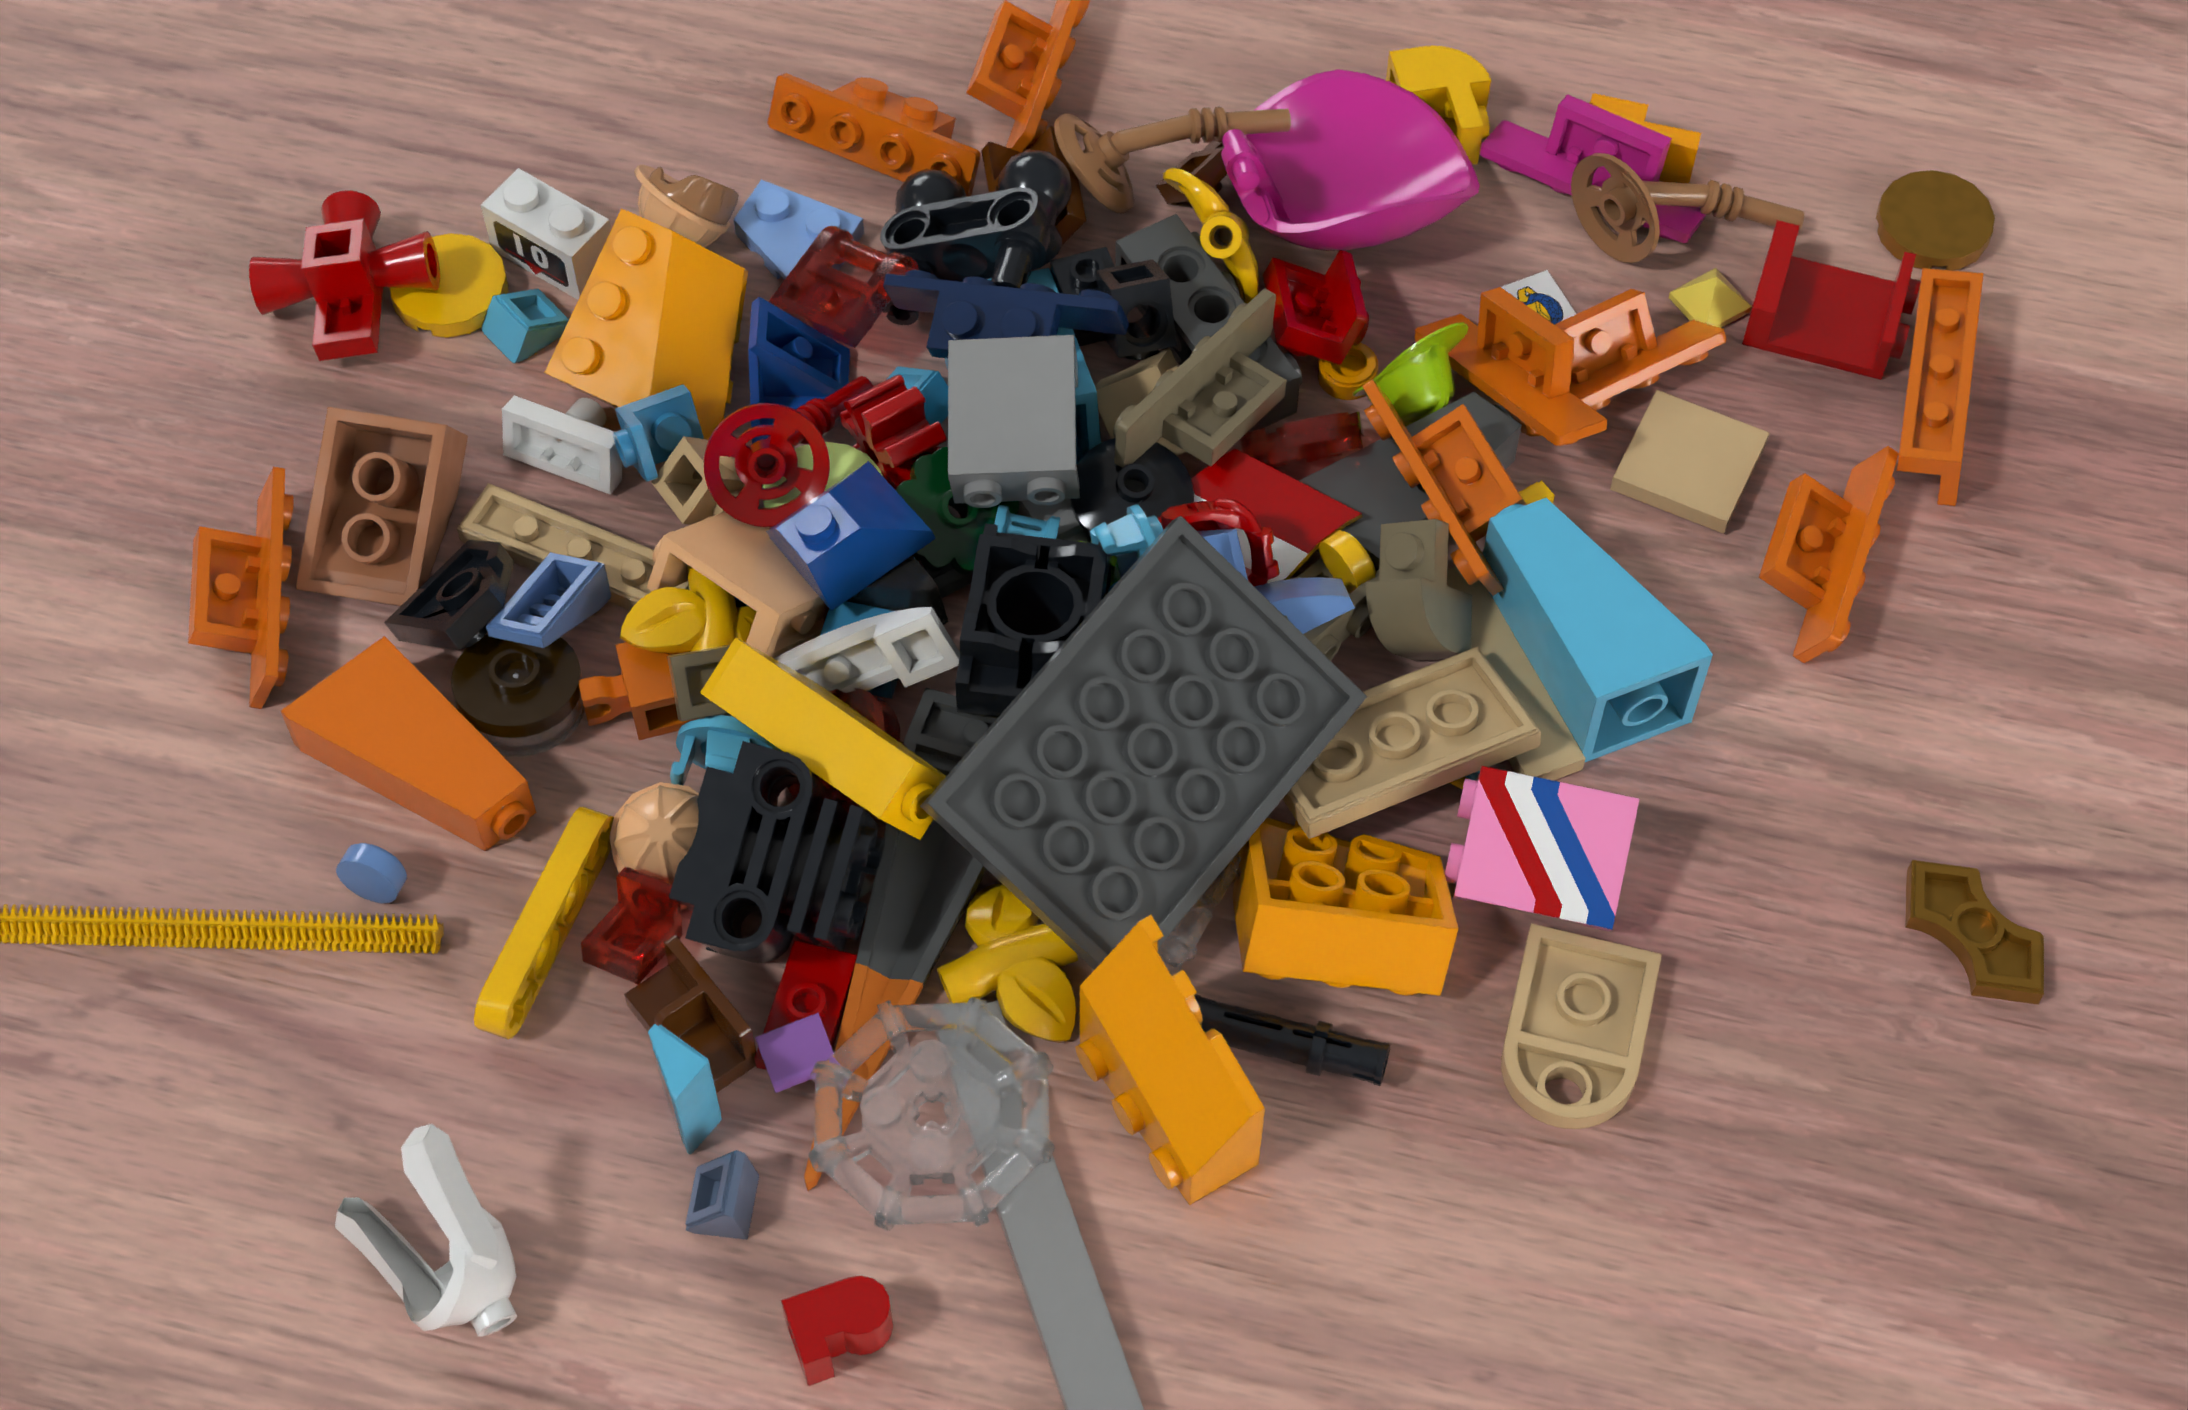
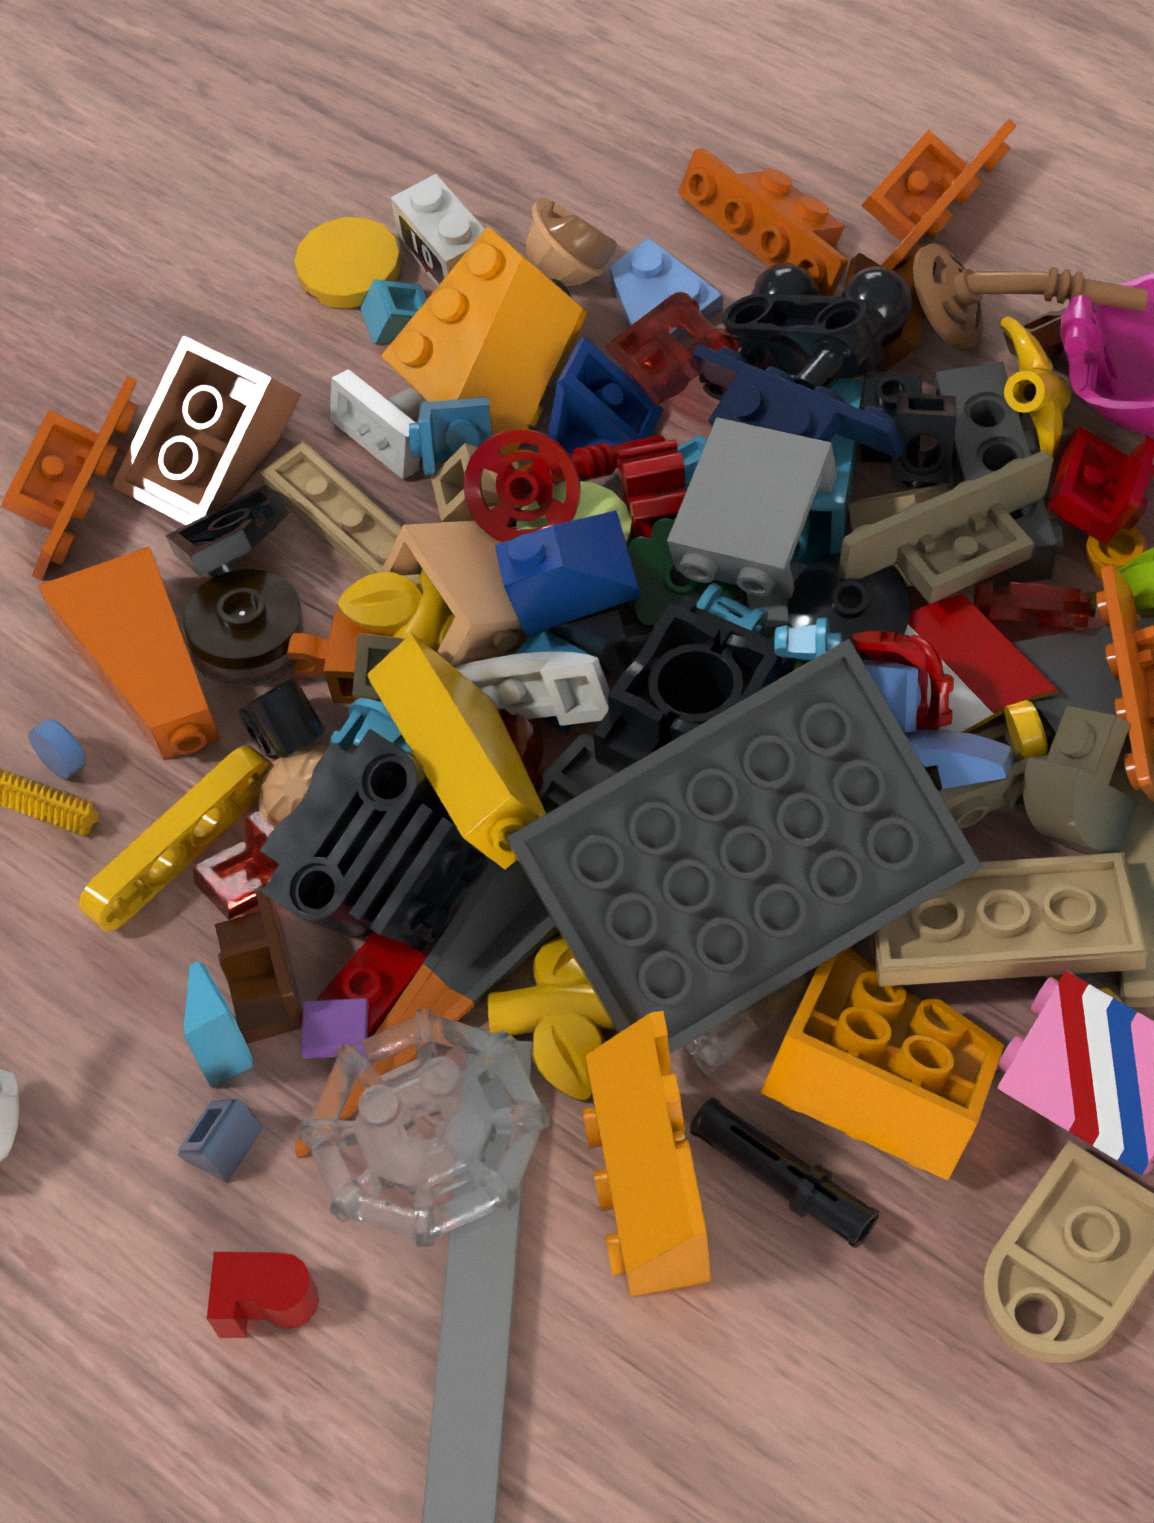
camera: 30 degrees right, 0 degrees up
(345, 275) = (261, 230): red brick -> none
(552, 601) = (302, 558): medium blue slope -> none
(608, 770) = (281, 720): none -> black piece

